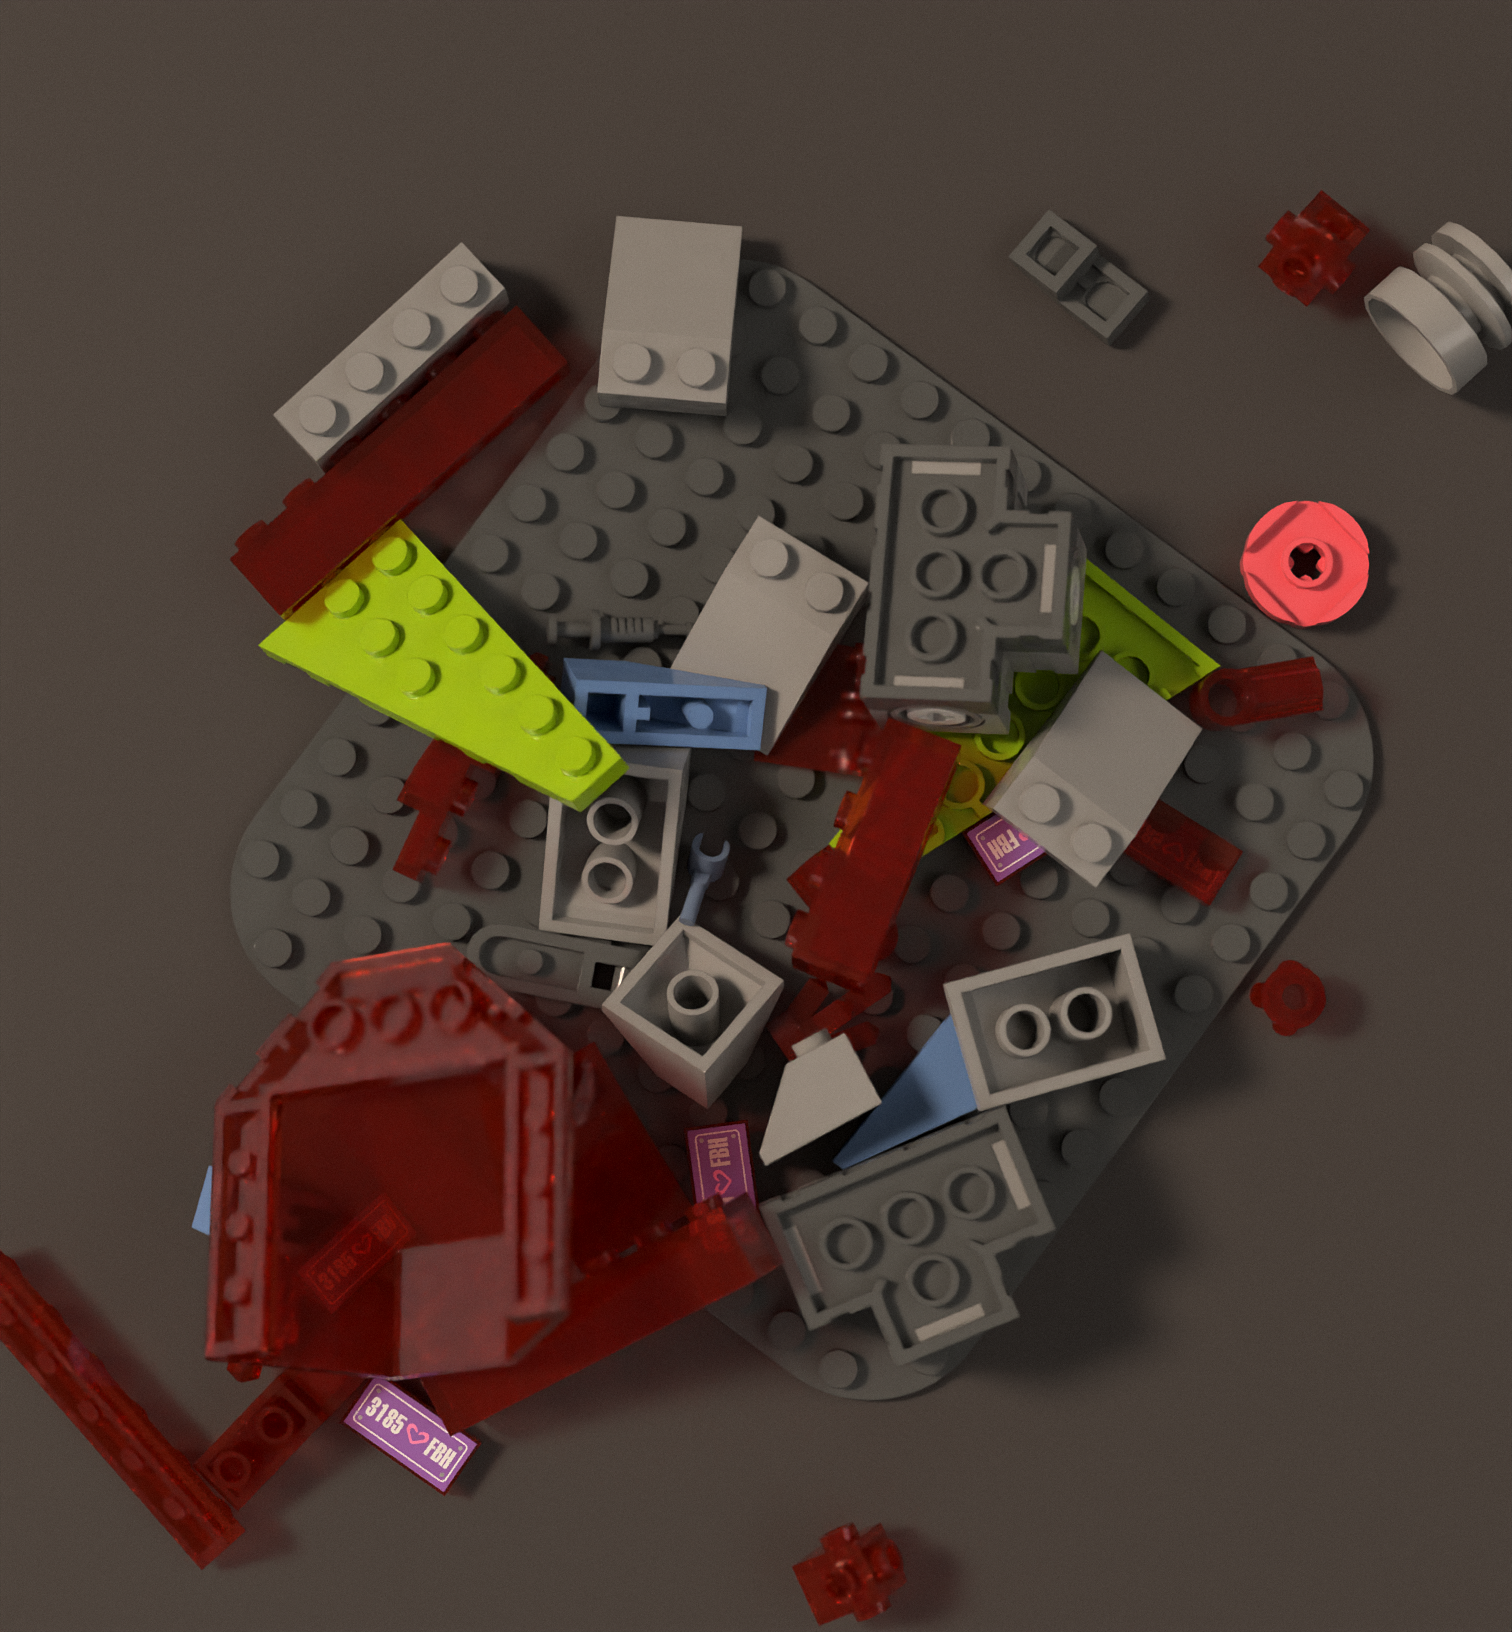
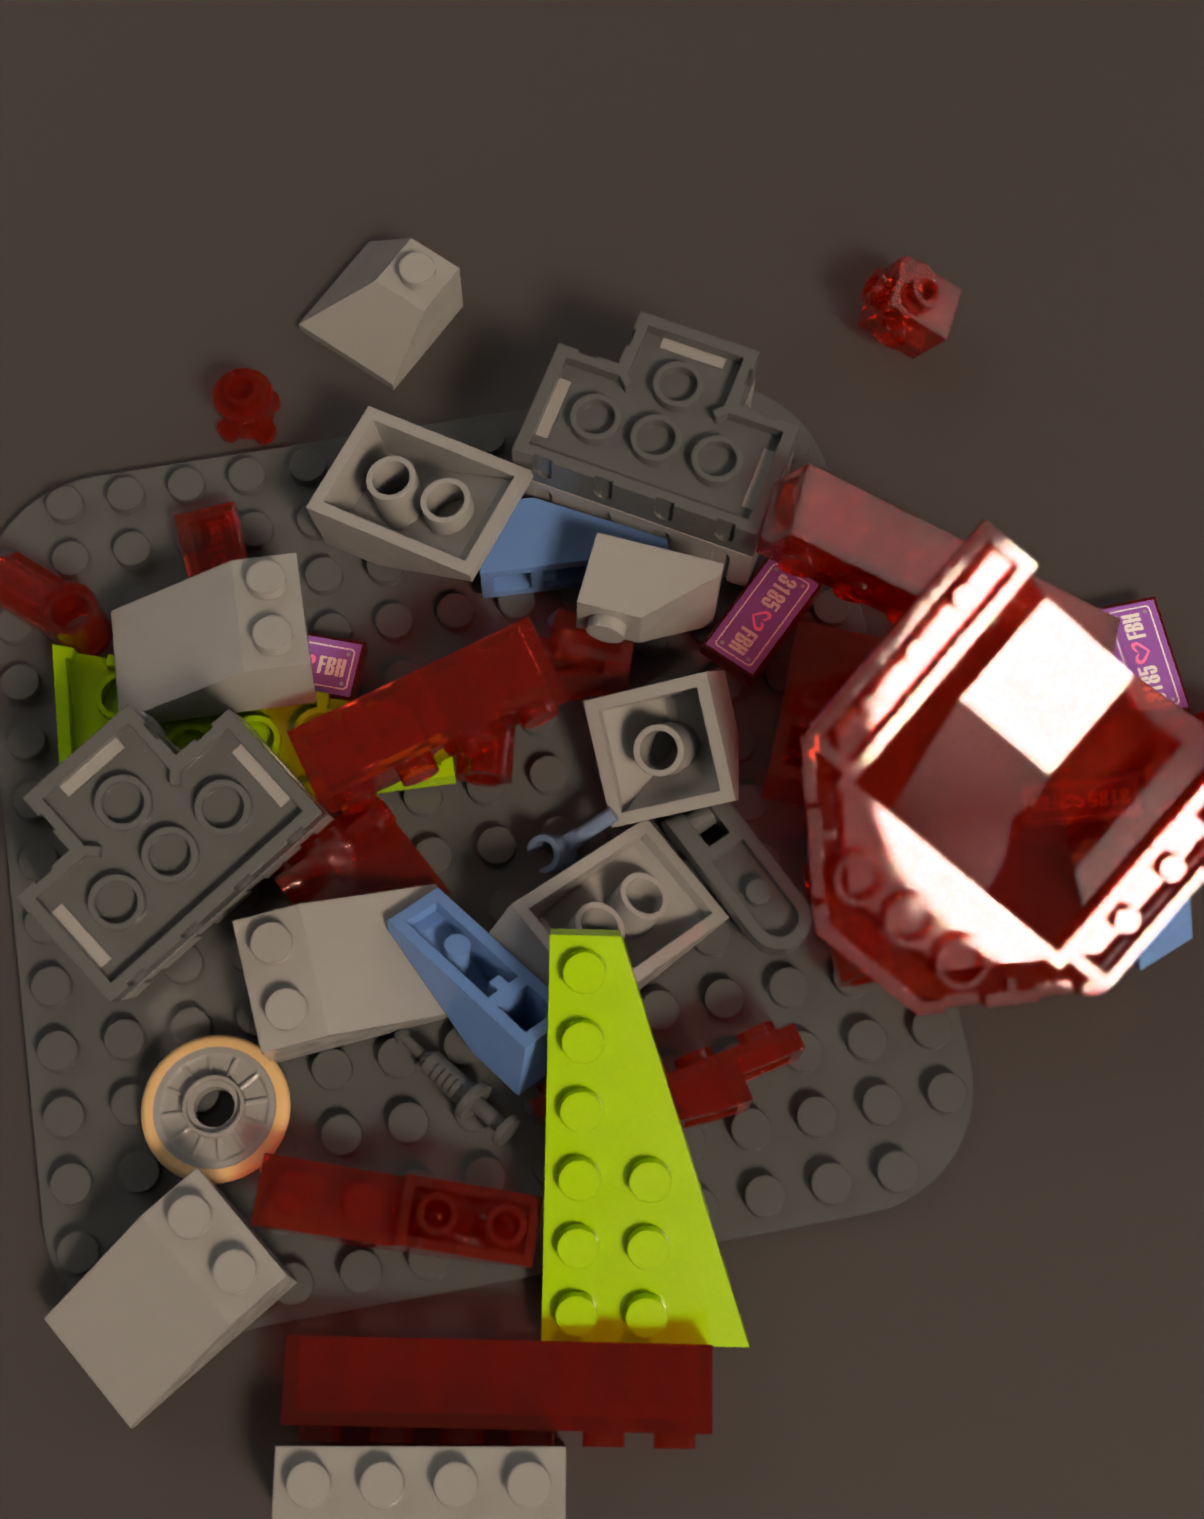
camera: 140 degrees left, 15 degrees down
(571, 506) = (396, 1212): none -> clear red slope
(758, 421) = (190, 1073): none -> light grey wheel
(1272, 1183) = (387, 308): none -> light grey slope

